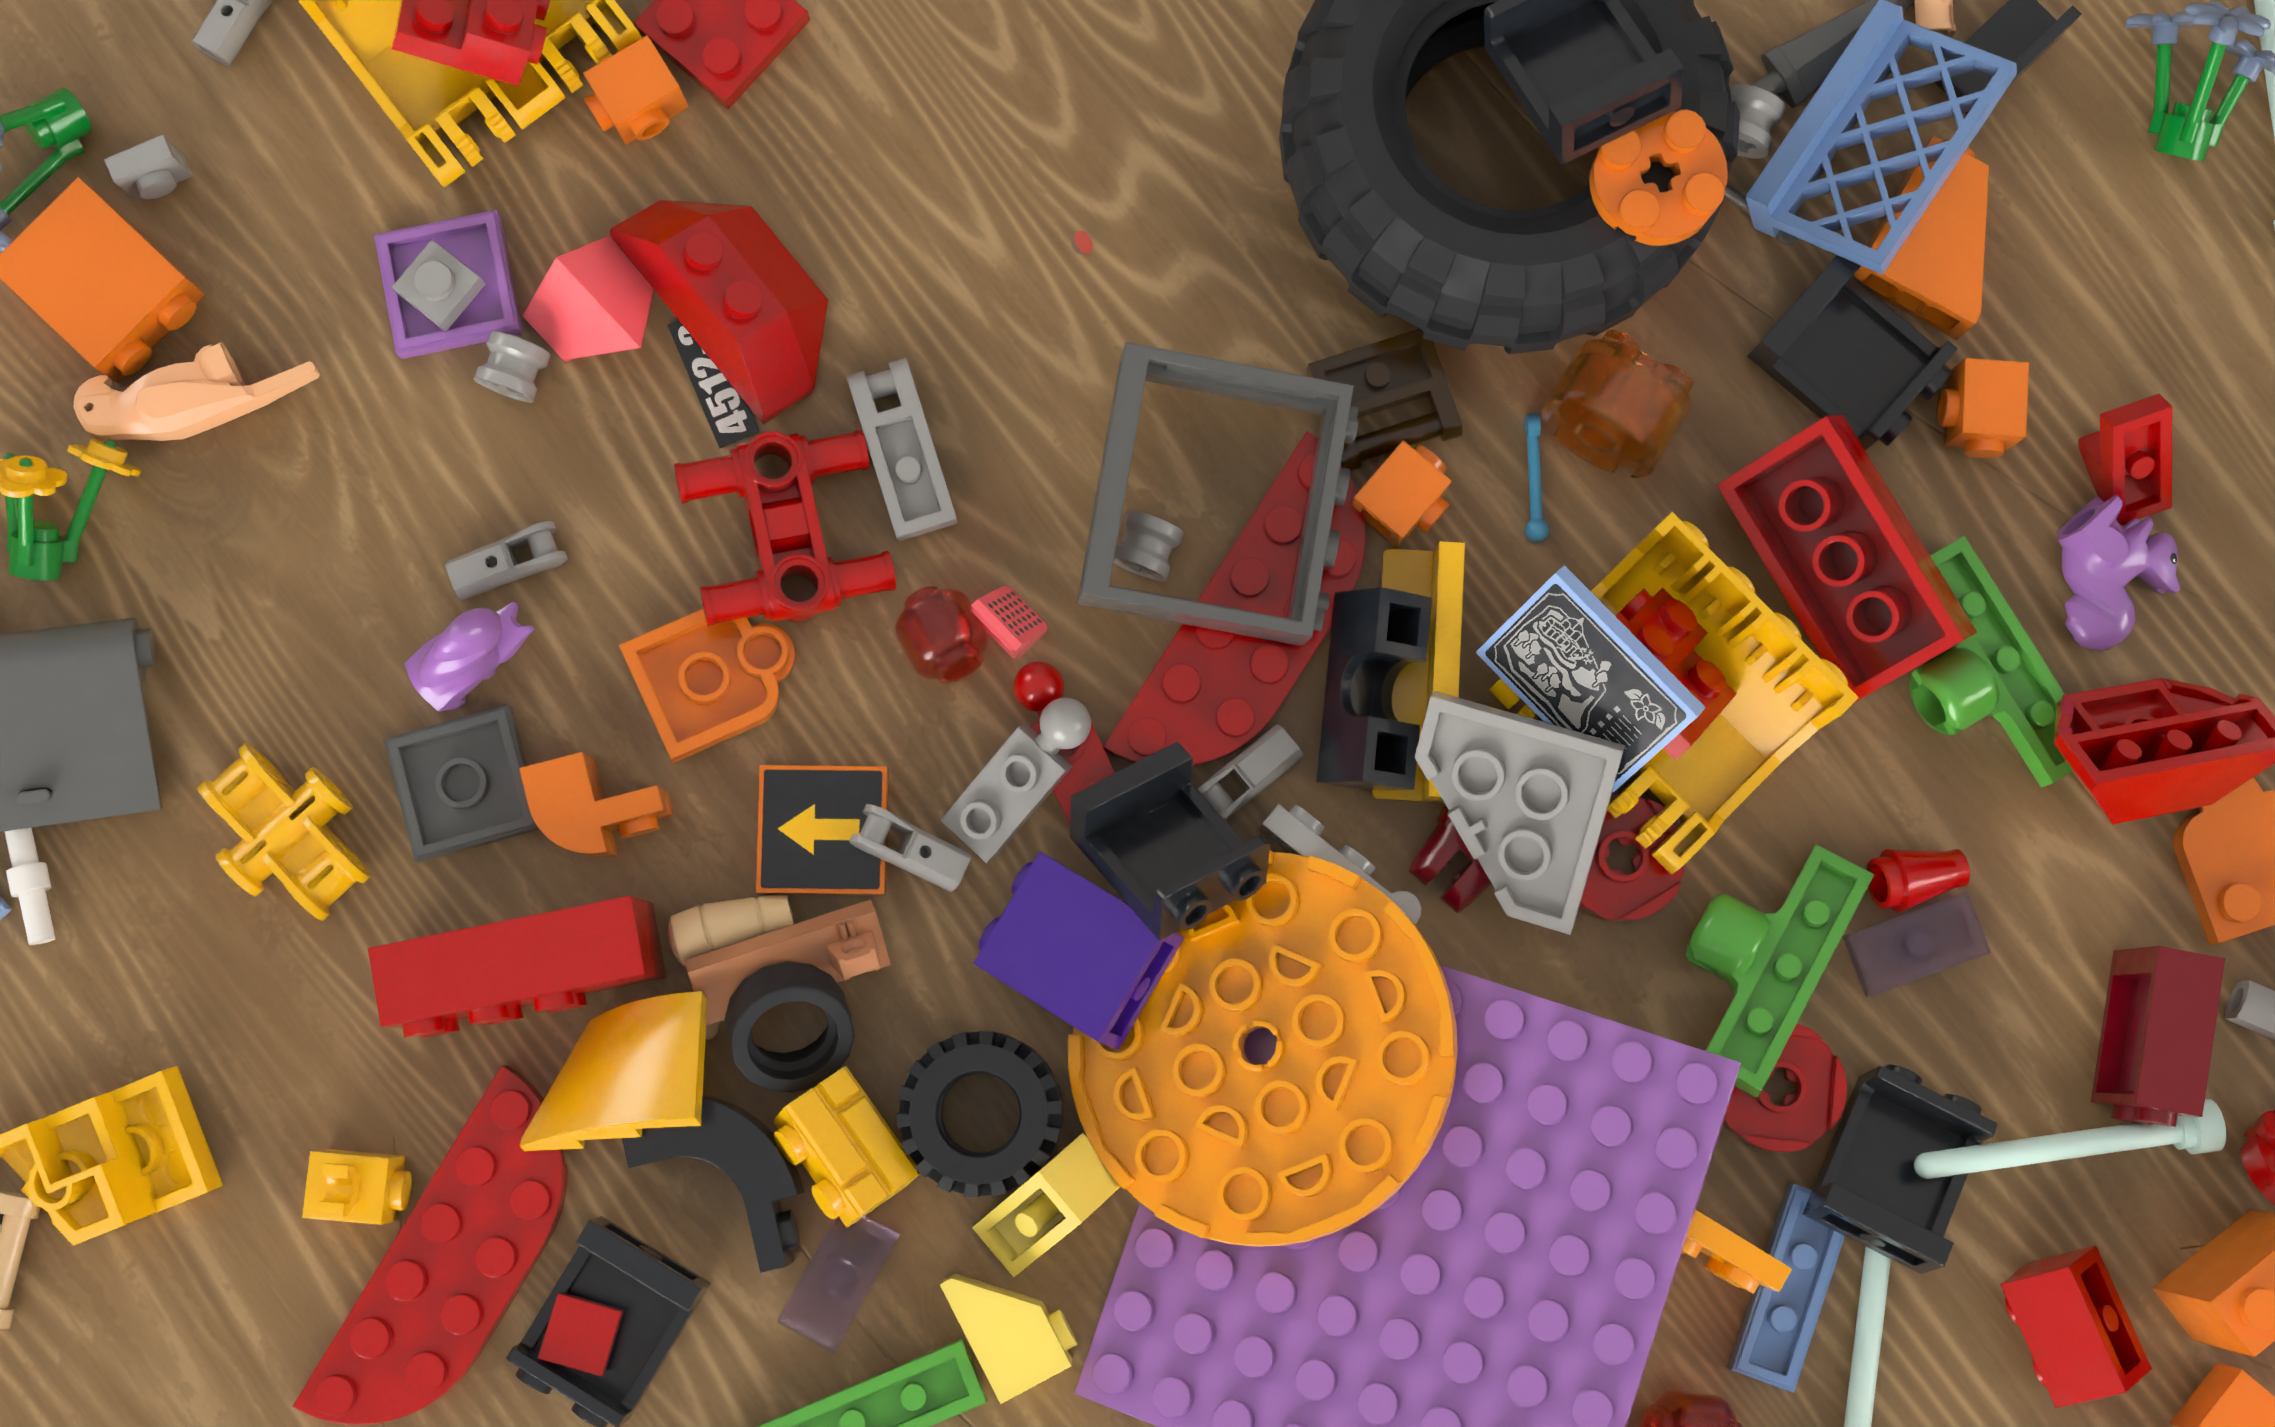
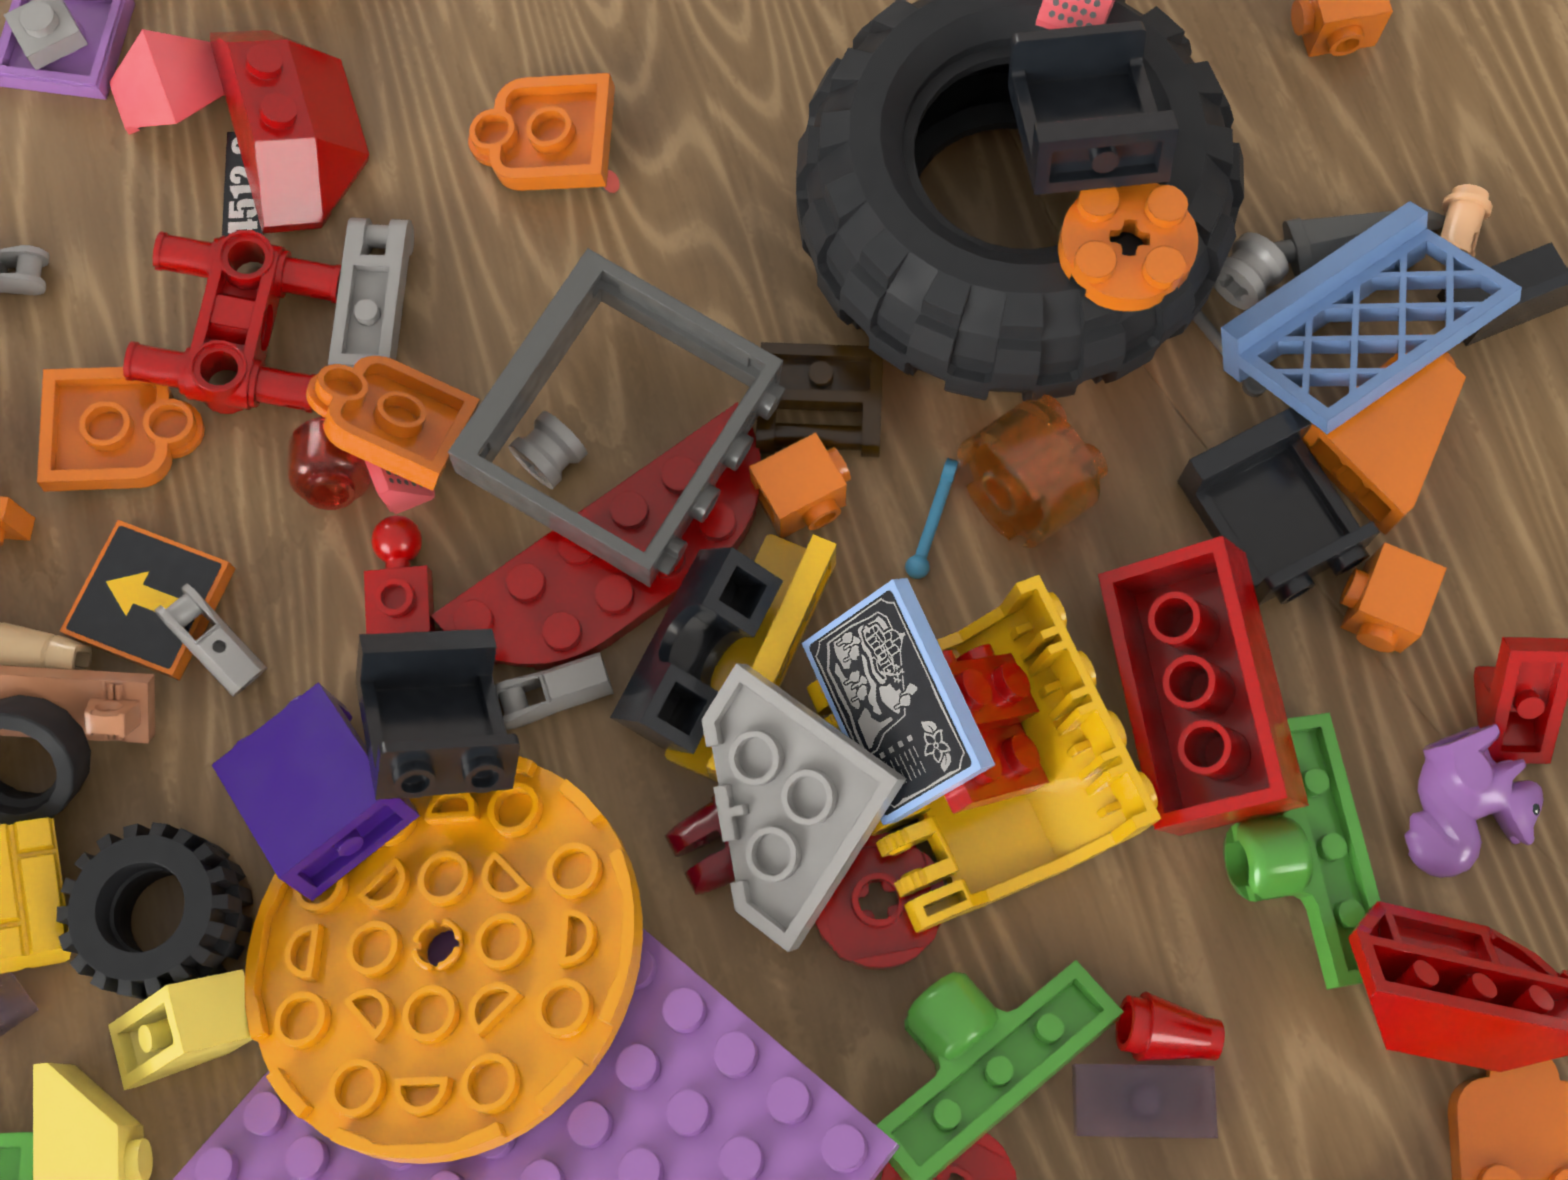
camera: 25 degrees right, 10 degrees down
(512, 366) = (74, 114): light grey wheel -> none
(992, 570) = (391, 415): none -> orange plate
(1002, 214) = (548, 132): none -> orange plate
(1017, 779) = (335, 613): light grey plate -> none
(1299, 835) = (575, 762): light grey plate -> none

